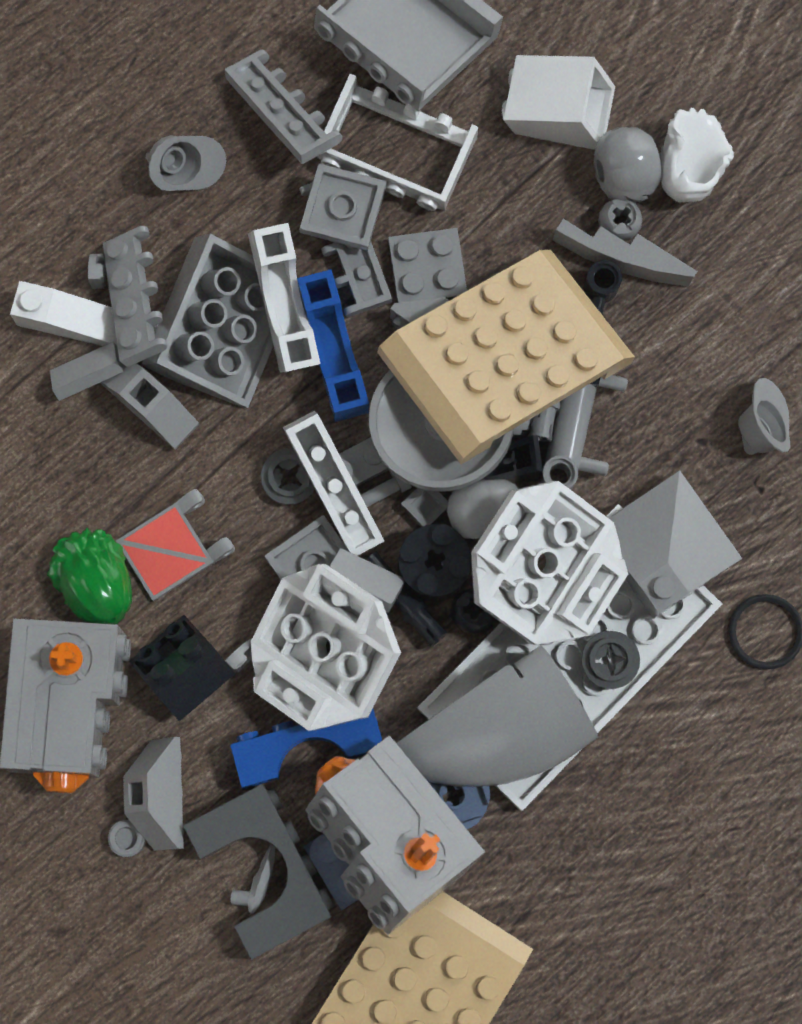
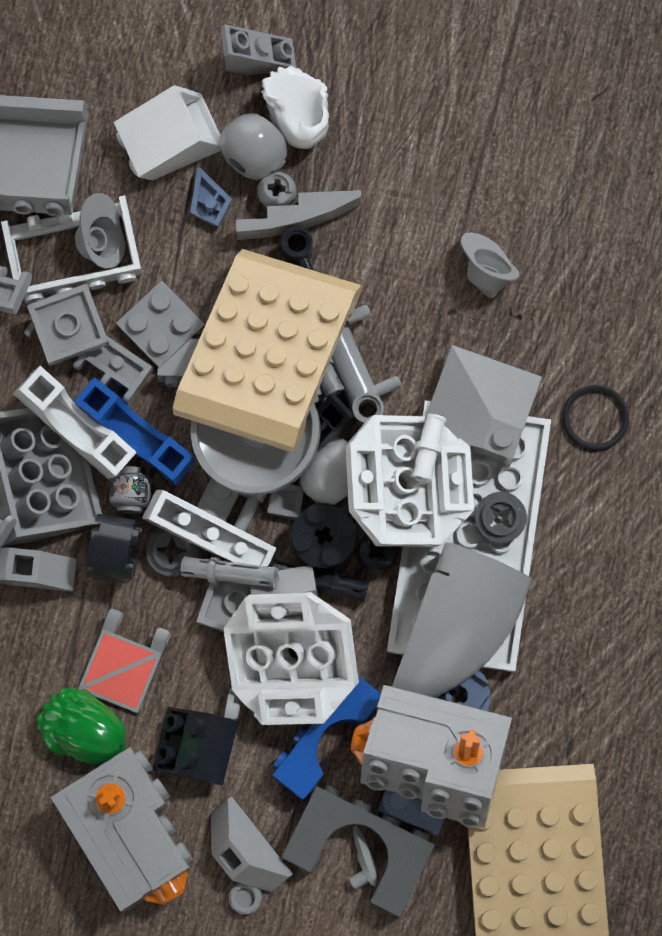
camera: 30 degrees left, 0 degrees up
(236, 436) = (113, 548): none -> black brick
(291, 395) = (130, 491): none -> light grey head
(315, 522) = (218, 570): none -> light grey pin
(433, 144) = (100, 232): none -> light grey piece
(552, 186) = (209, 200): none -> sand blue piece
(588, 547) = (428, 447): none -> white pin
(690, 80) = (254, 51): none -> light grey slope

